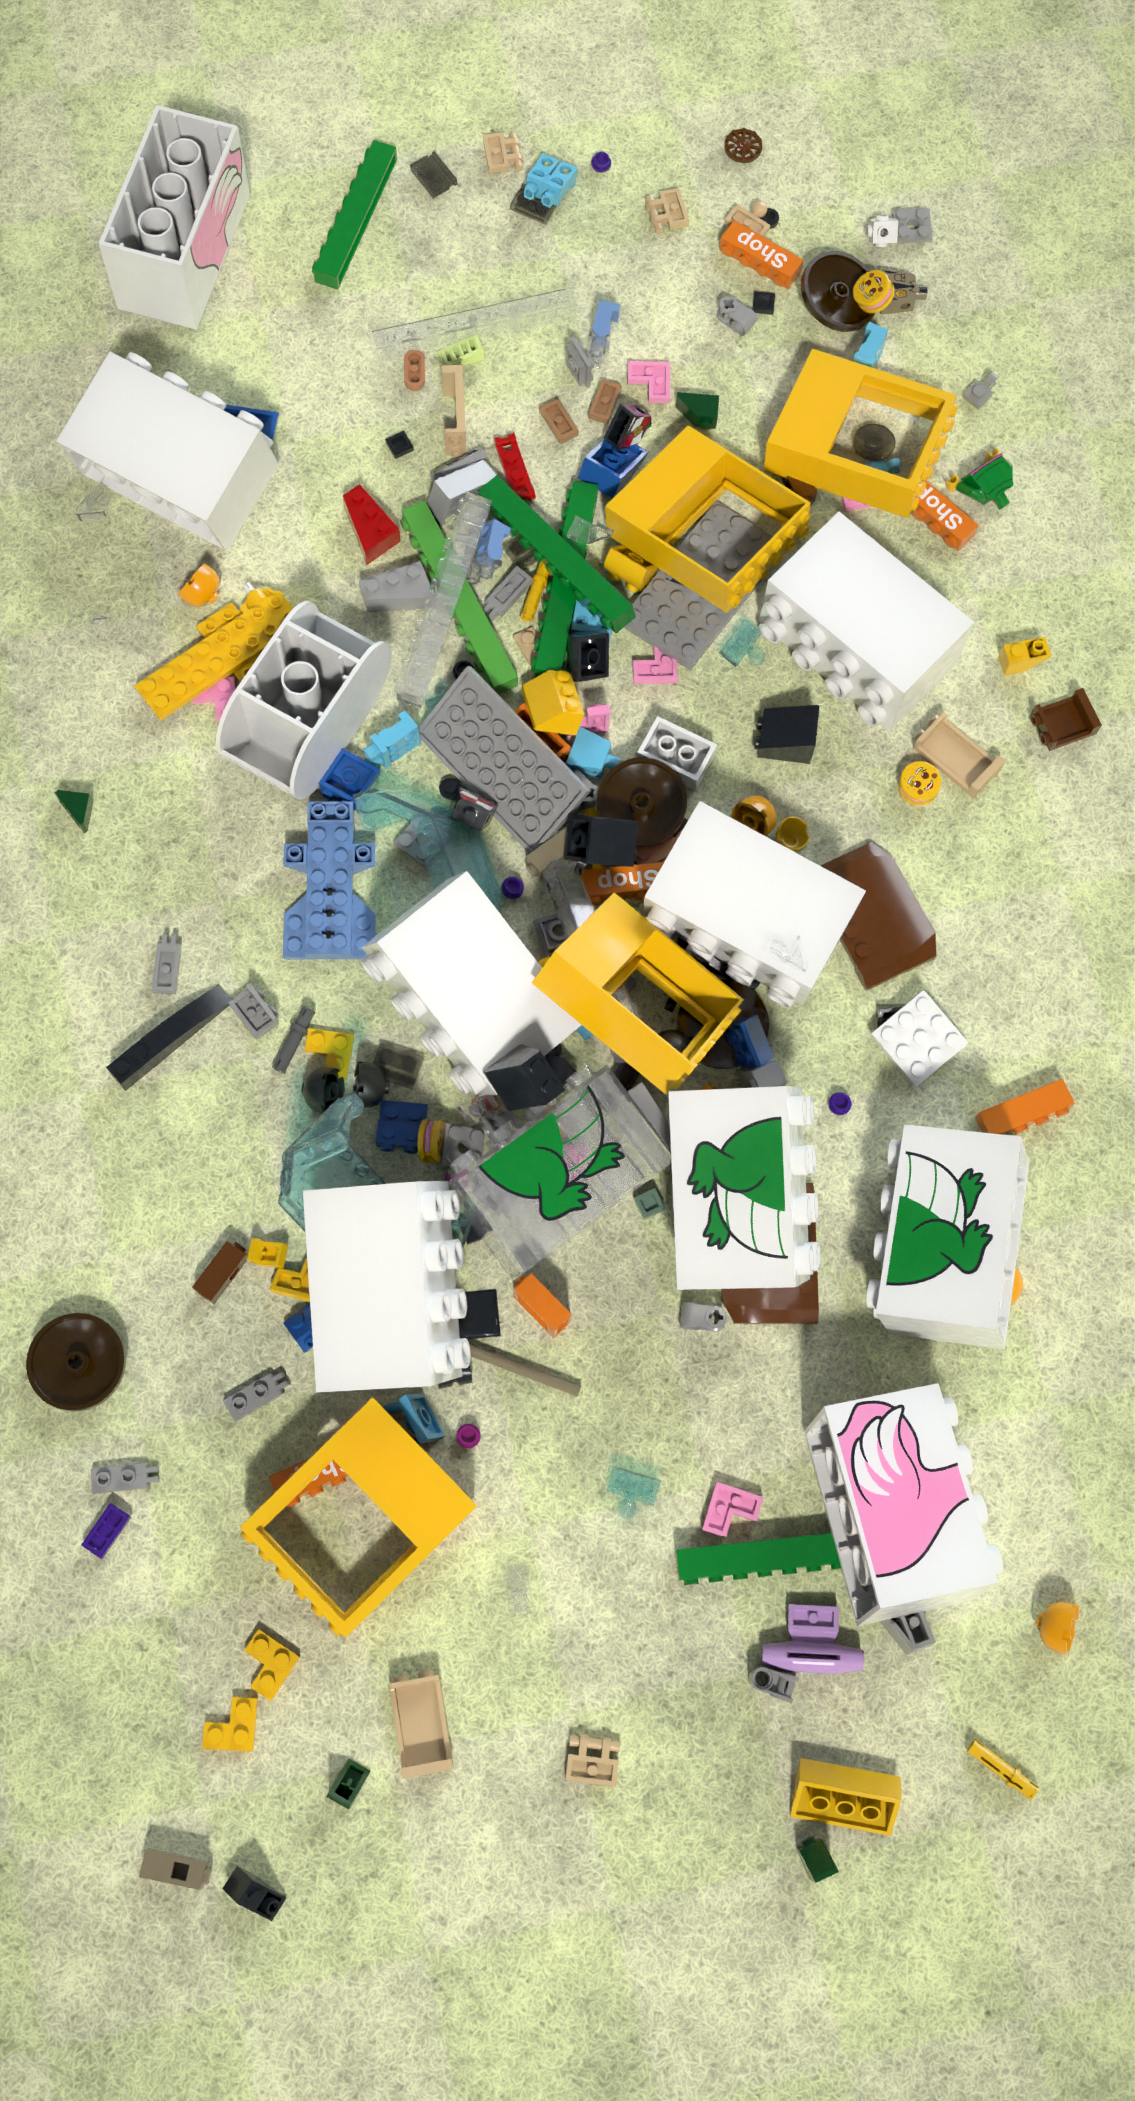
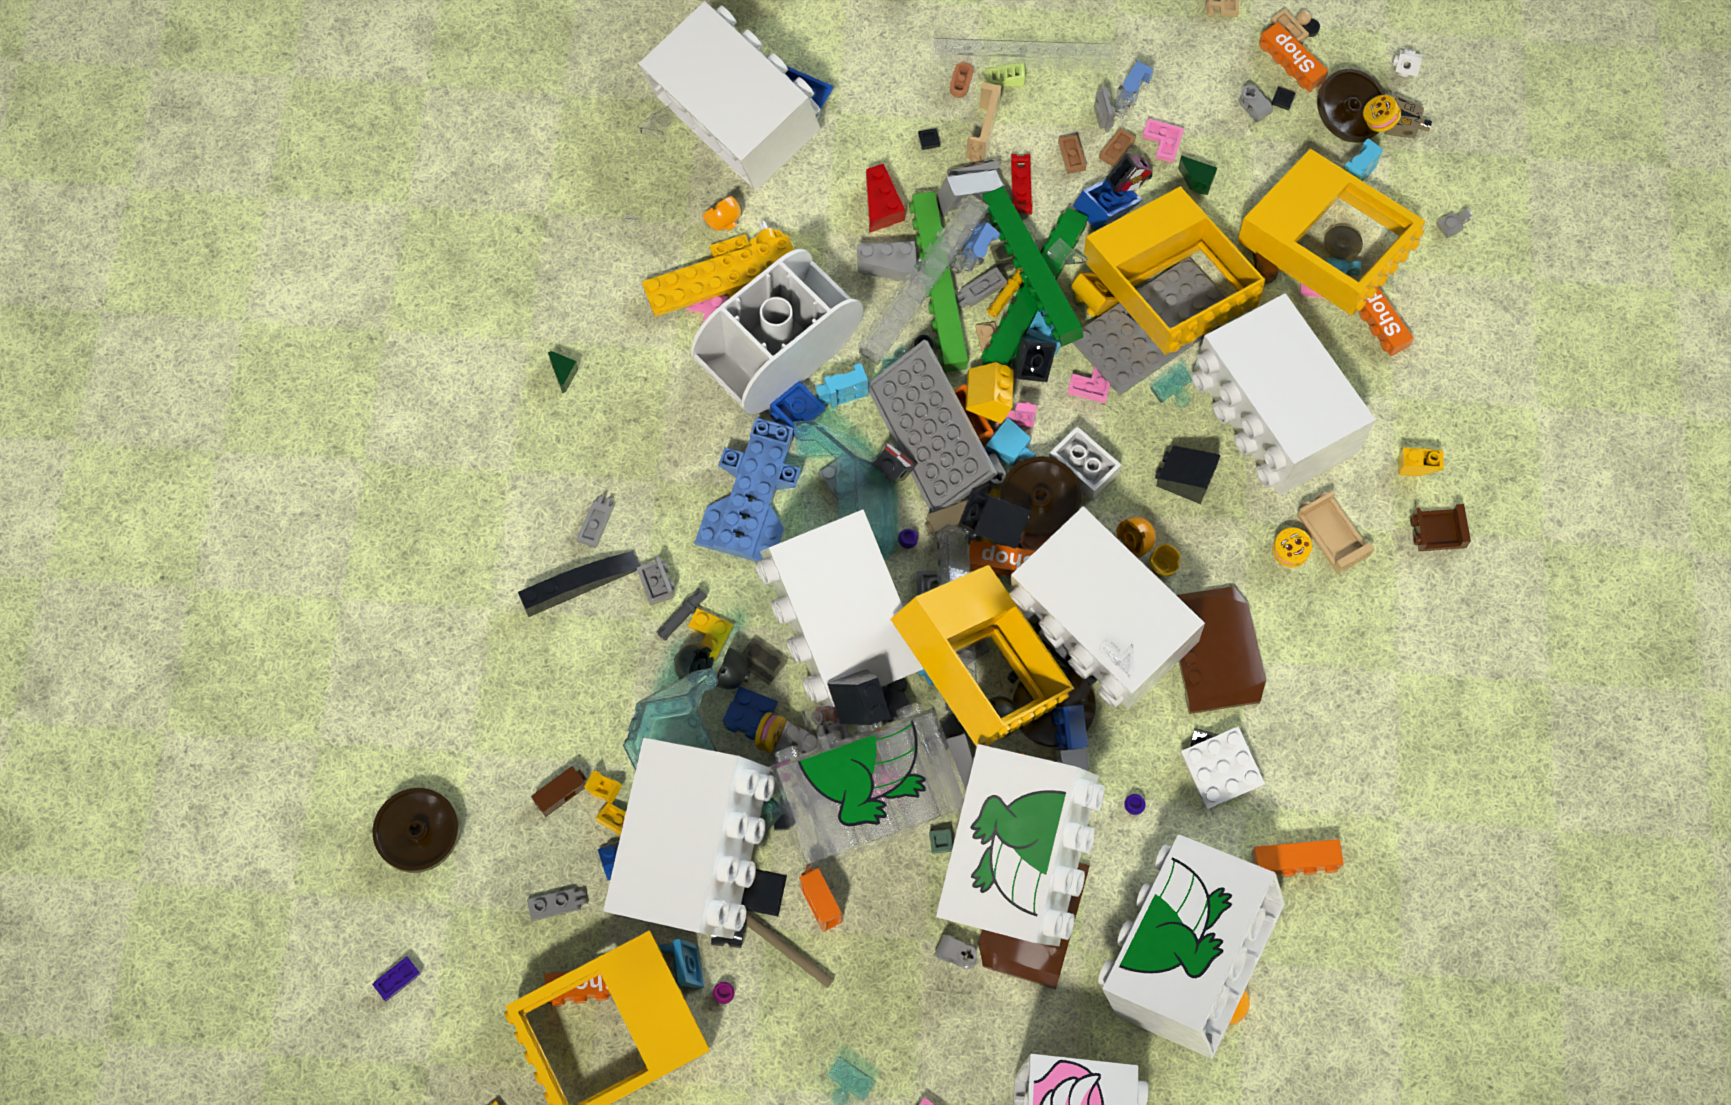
camera: 20 degrees right, 5 degrees down
(122, 1478) = (424, 939): light grey hinge -> none
(449, 787) = (879, 439): black plate -> none
(917, 217) = (1443, 59): light grey piece -> none
(986, 481) = (1433, 302): green torso -> none

